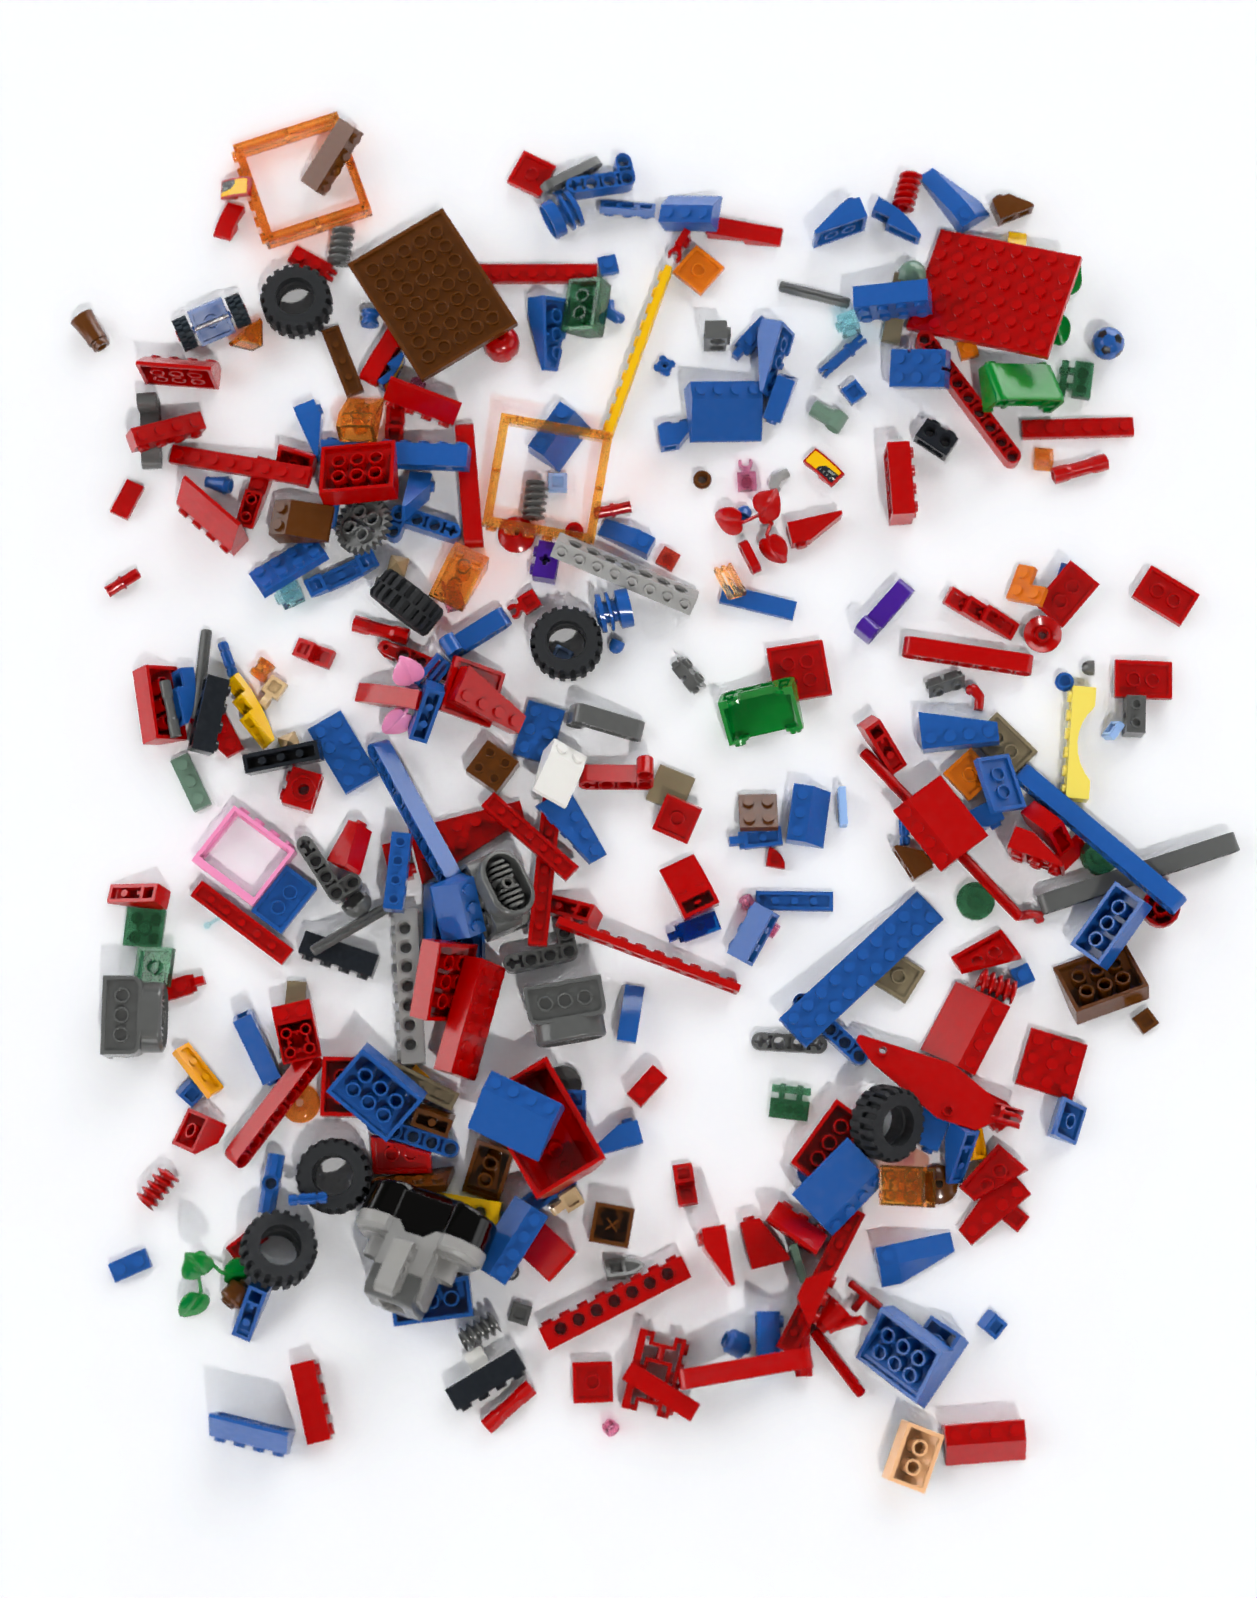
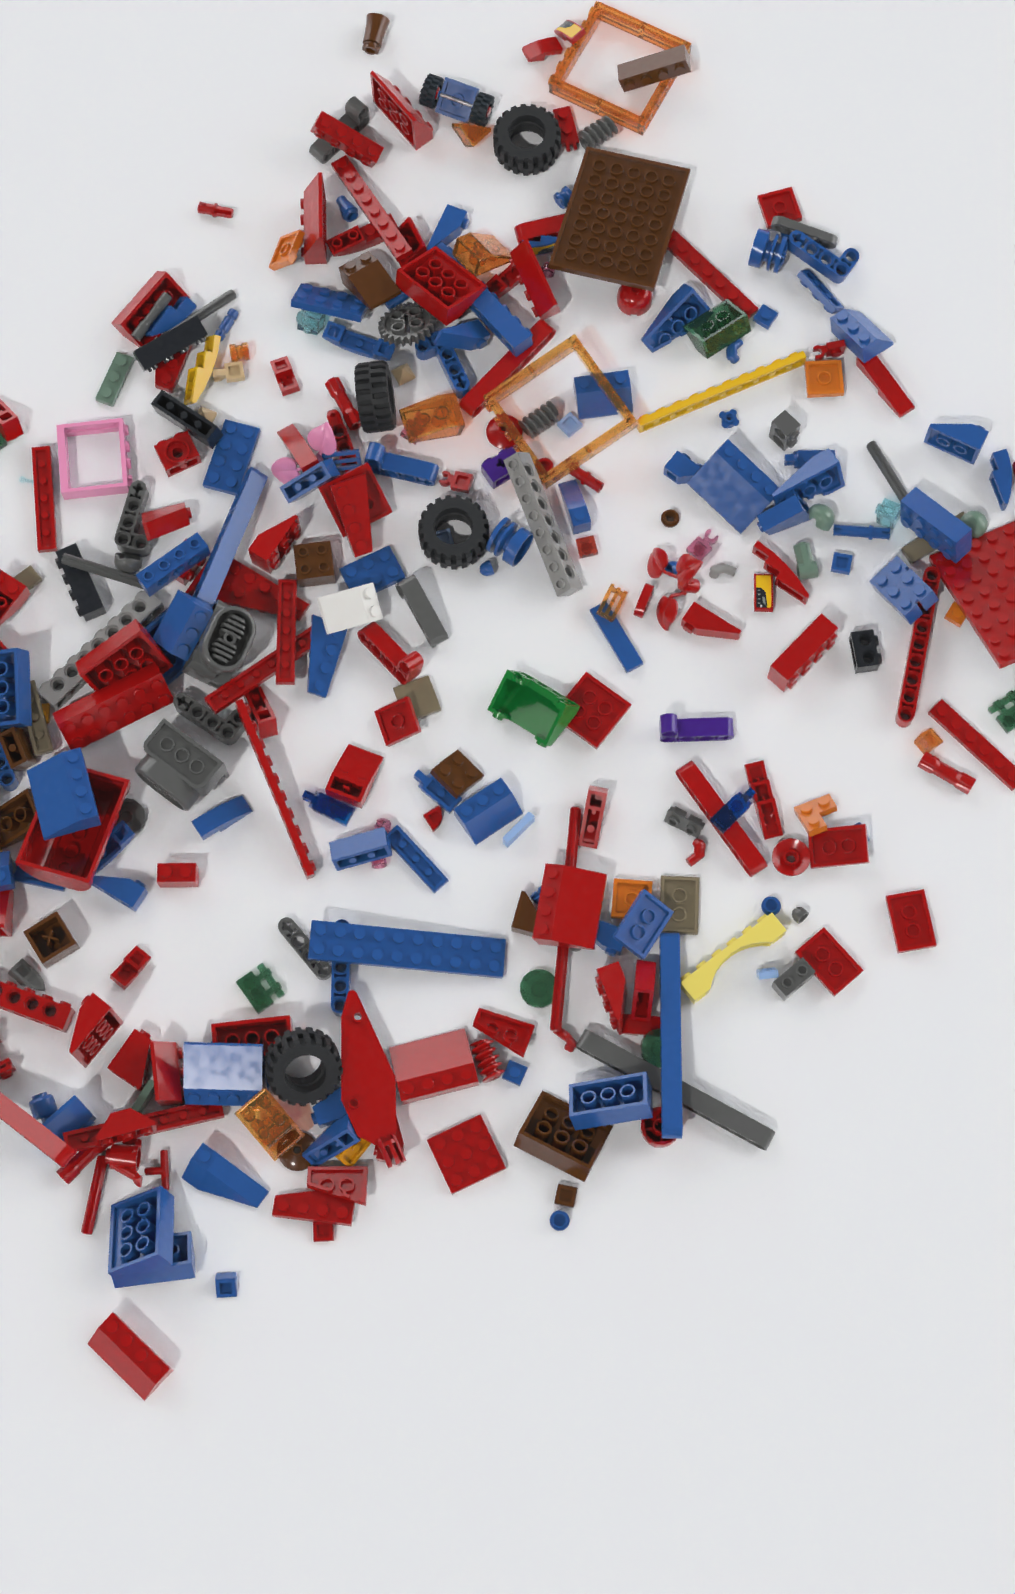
camera: 50 degrees right, 5 degrees down
(127, 499) = (278, 162): red tile -> none
(213, 559) = (286, 250): none -> orange plate
(284, 900) = (87, 512): blue plate -> none
(342, 361) = (516, 208): reddish brown tile -> none
(450, 792) = (274, 543): none -> red slope
(569, 1200) = (44, 895): tan plate -> none
(693, 679) = (516, 628): dark grey hinge -> none
(806, 370) = (823, 515): none -> sand green hair
(827, 441) = (784, 575): none -> red slope
(901, 980) = (428, 987): dark tan tile -> none
(913, 1456) = (70, 1310): light nougat slope -> none
(955, 733) = (648, 856): blue wedge -> none
(973, 642) = (732, 810): none -> clear blue hinge
(1019, 386) = (963, 671): green windscreen -> none
(1066, 1121) = (432, 1203): blue slope -> none
(1159, 1041) = (559, 1220): none -> blue plate

